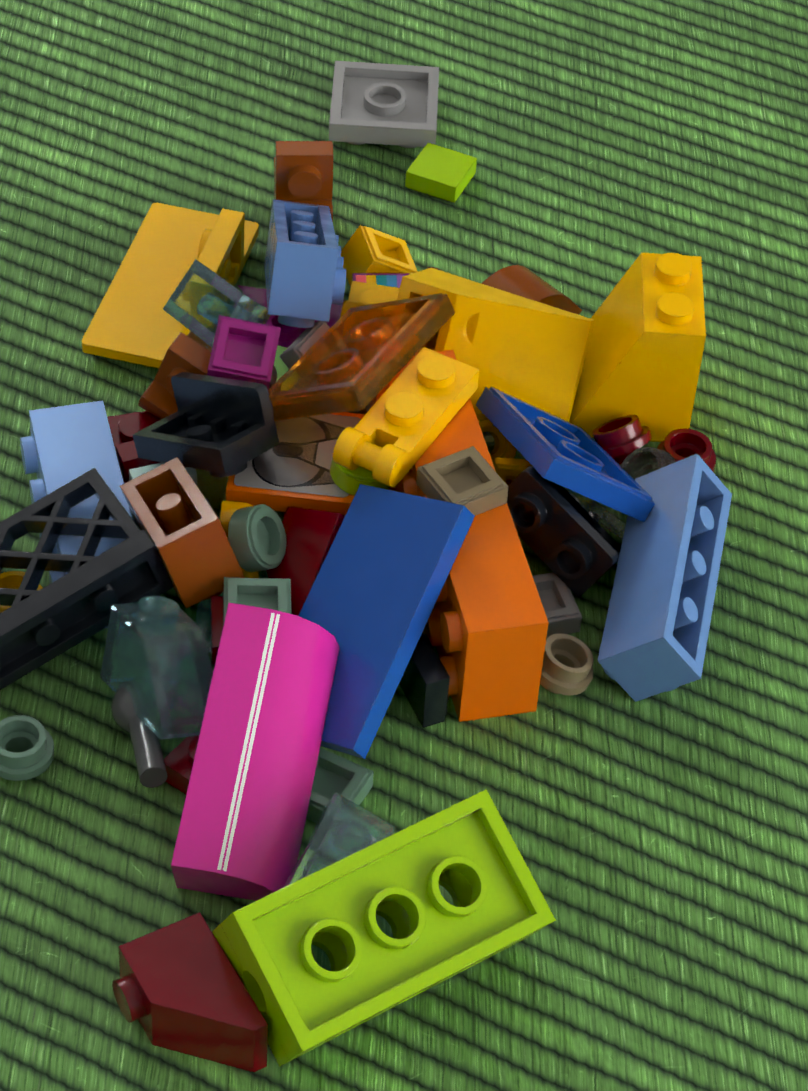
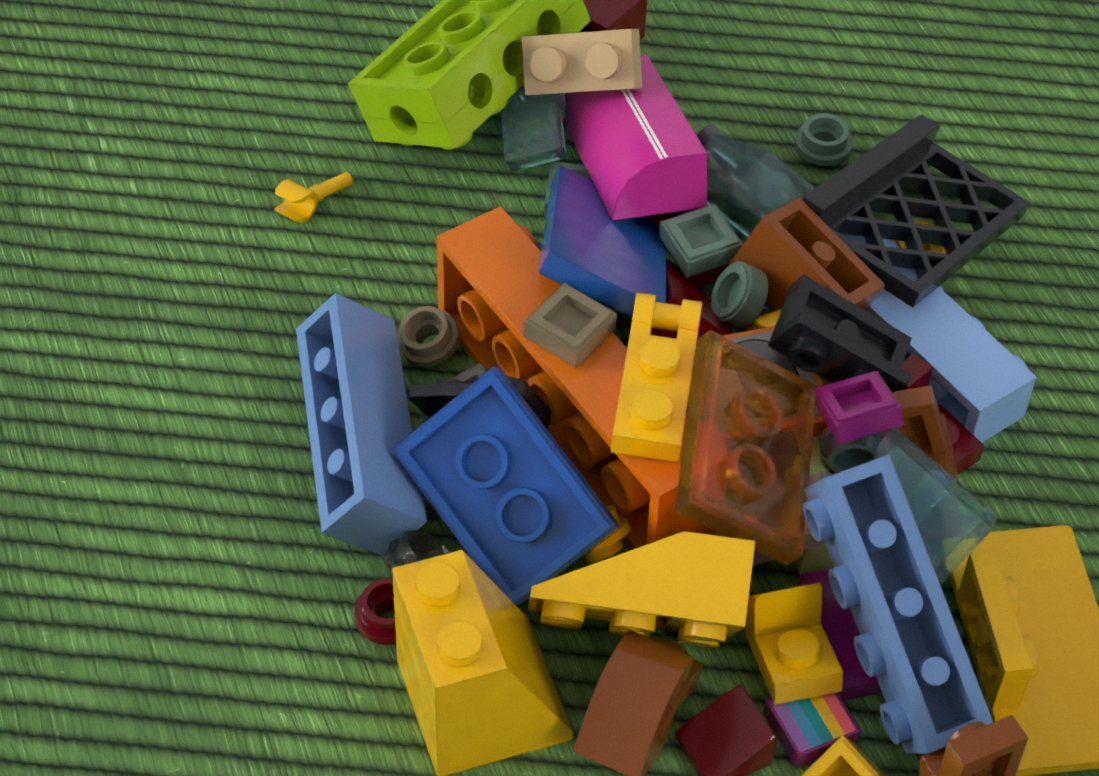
camera: 160 degrees right, 5 degrees up
(258, 789) = (582, 62): none -> tan plate
(643, 864) = (302, 201): none -> yellow hand

